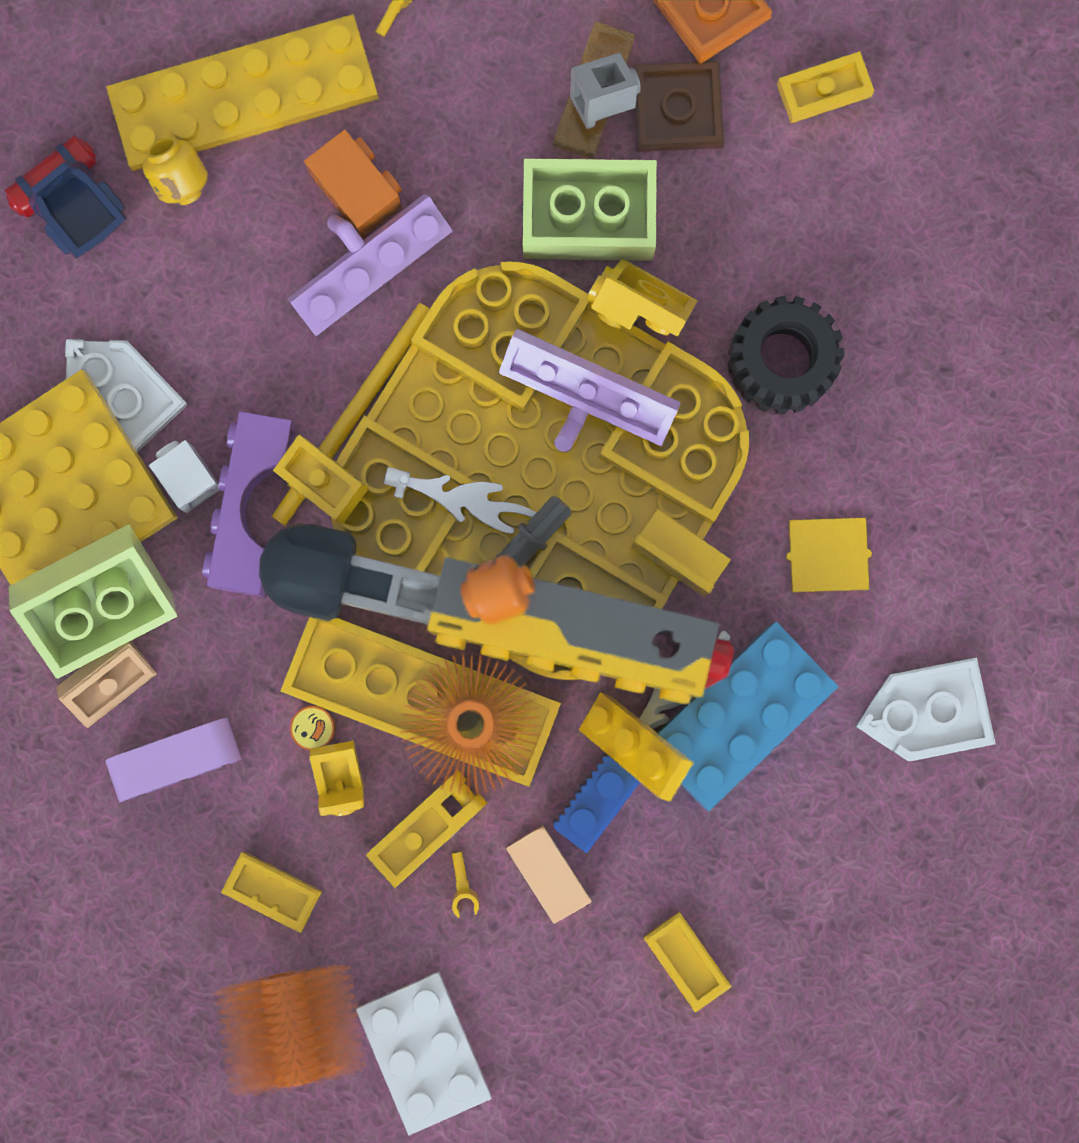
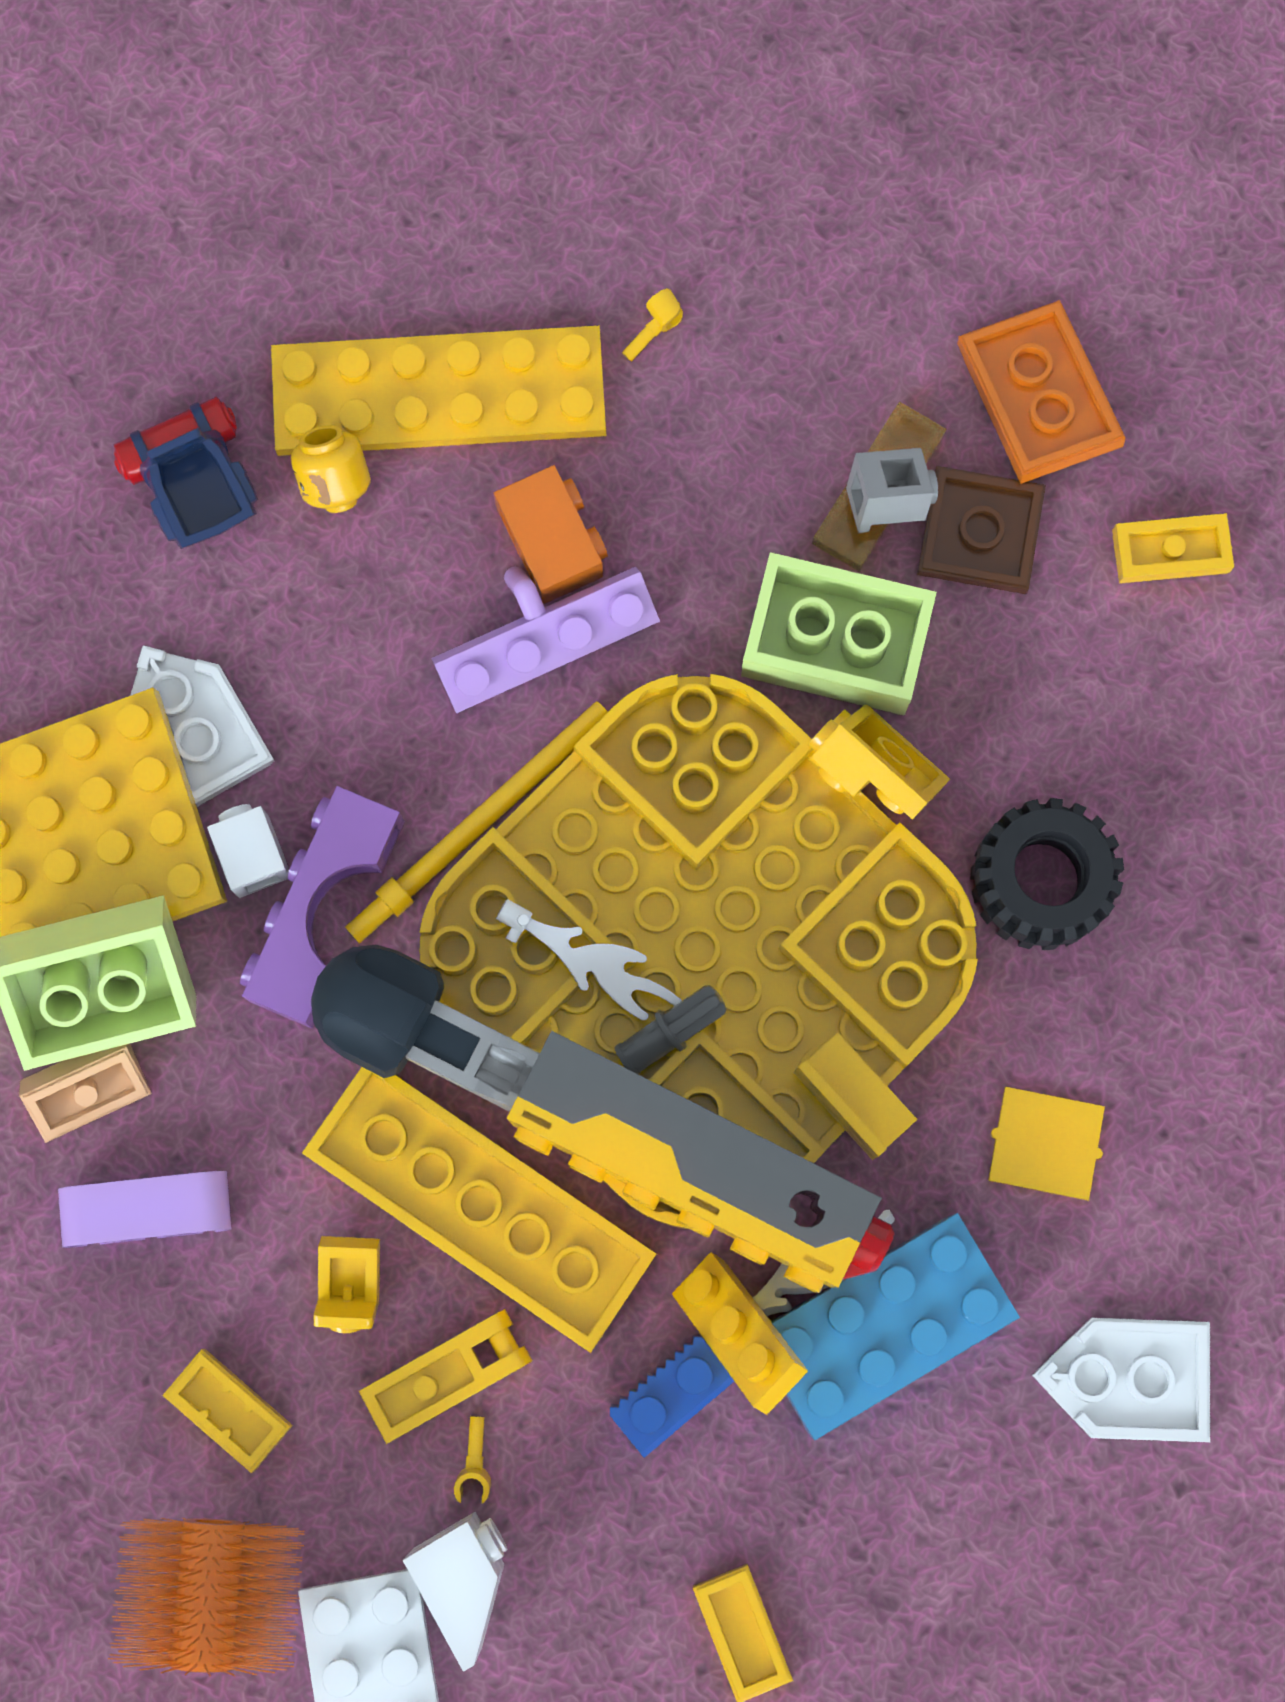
camera: 15 degrees right, 5 degrees down
(312, 727) = (331, 1210): light yellow tile -> none
(320, 479) = (418, 895): yellow plate -> none
(472, 974) = (459, 1581): none -> white slope
(487, 721) = (508, 1253): orange piece -> none
(497, 590) = (607, 1088): orange head -> none
(548, 874) = (589, 1474): light nougat slope -> none
(587, 390) = (783, 861): lavender plate -> none

